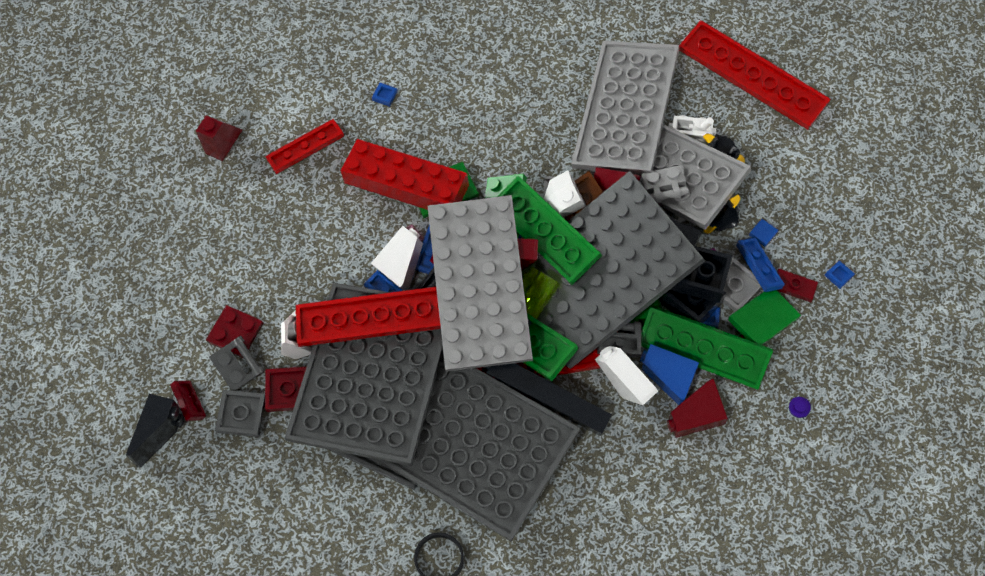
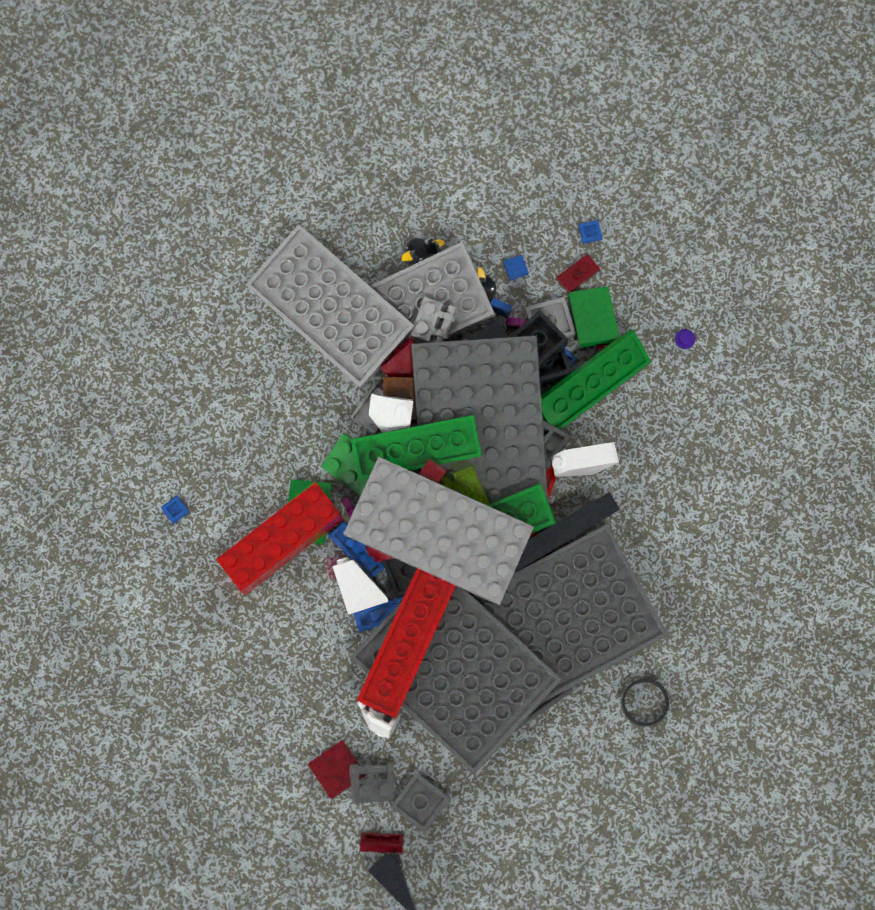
camera: 60 degrees left, 10 degrees up
(217, 137) = (130, 684): dark red slope -> none
(282, 388) = (420, 751): dark red plate -> none
(304, 146) = (186, 611): red plate -> none
(669, 371) = (596, 422): blue slope -> none
(693, 127) = (386, 263): white brick -> none
(698, 412) = (643, 420): dark red slope -> none
(718, 238) = (501, 308): none -> blue tile
(754, 74) = (361, 178): red plate -> none
(760, 264) = (545, 290): blue tile -> none

